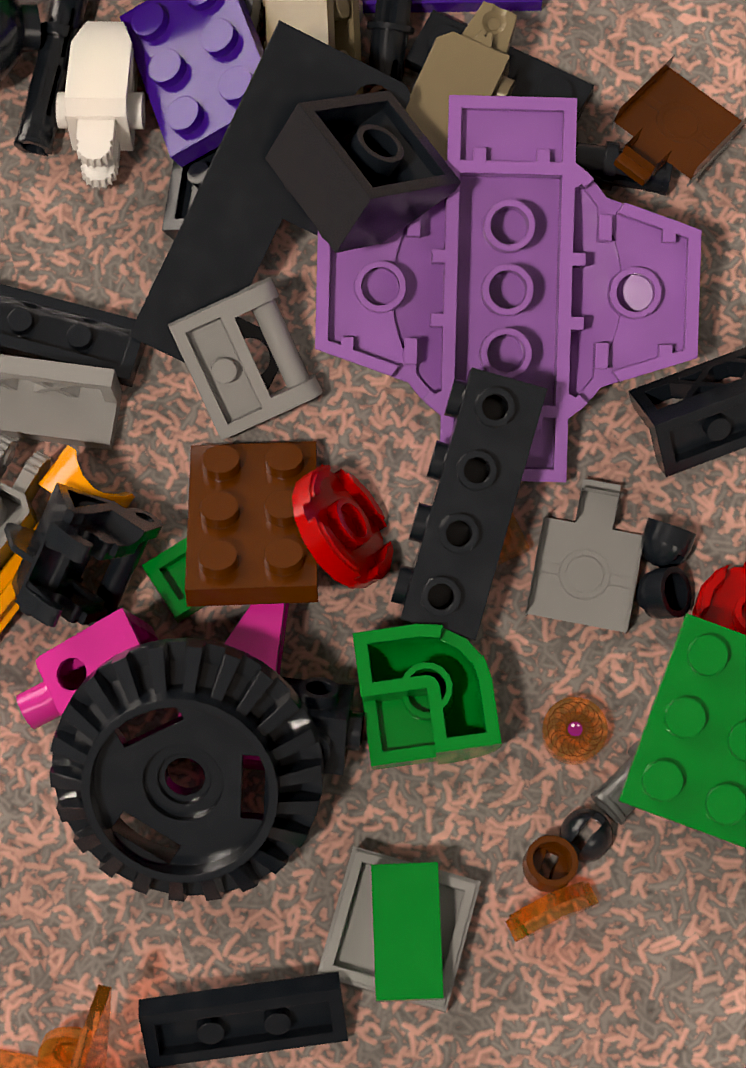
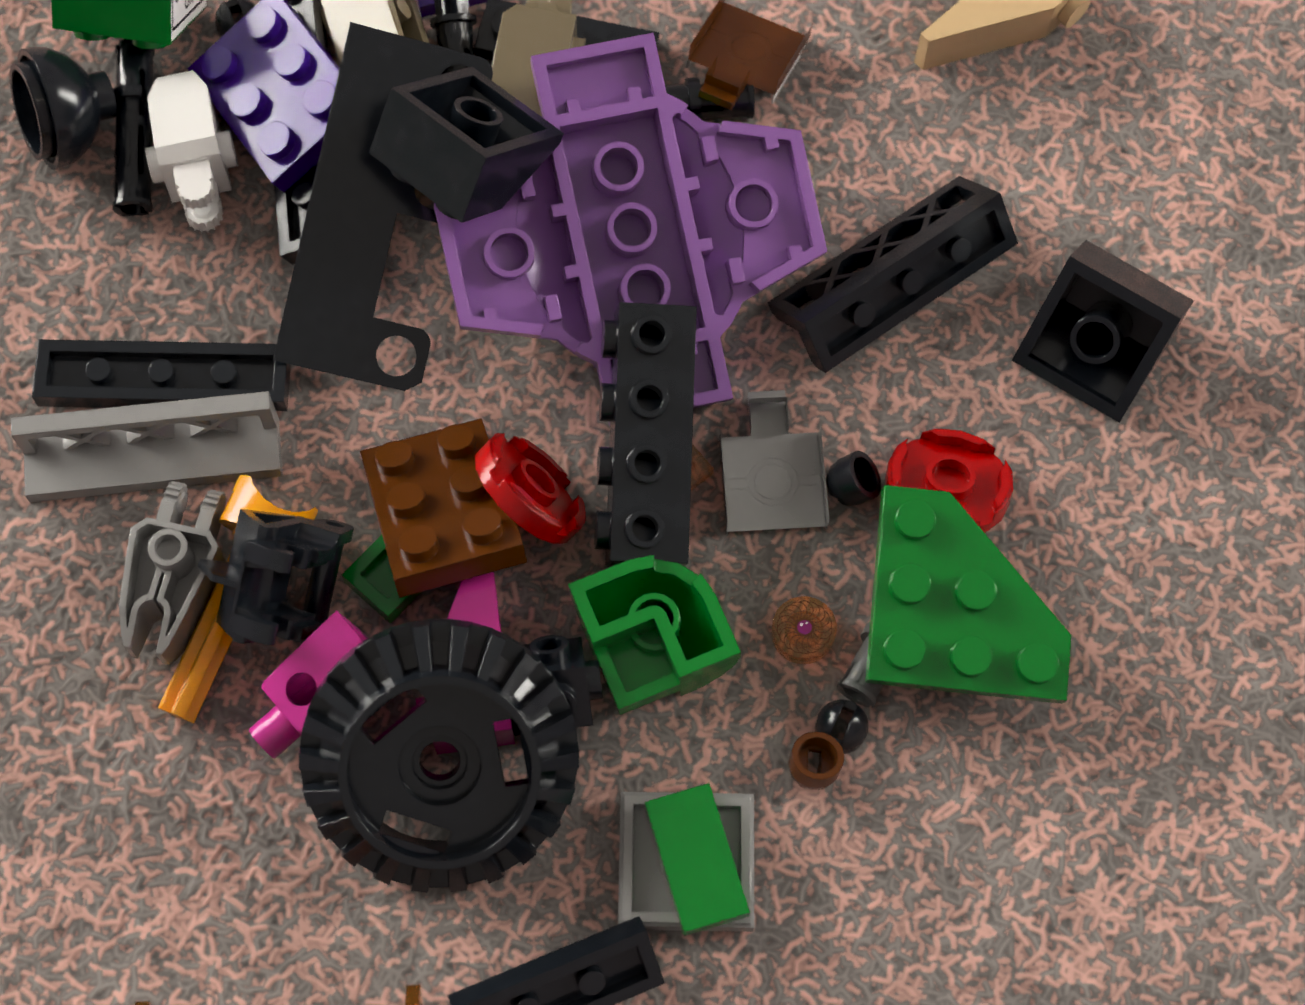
camera: 20 degrees left, 5 degrees down
(224, 365) = (378, 369): light grey plate -> none
(551, 910) = (828, 805): clear orange tile -> none
(665, 543) = (842, 432): black hinge -> none

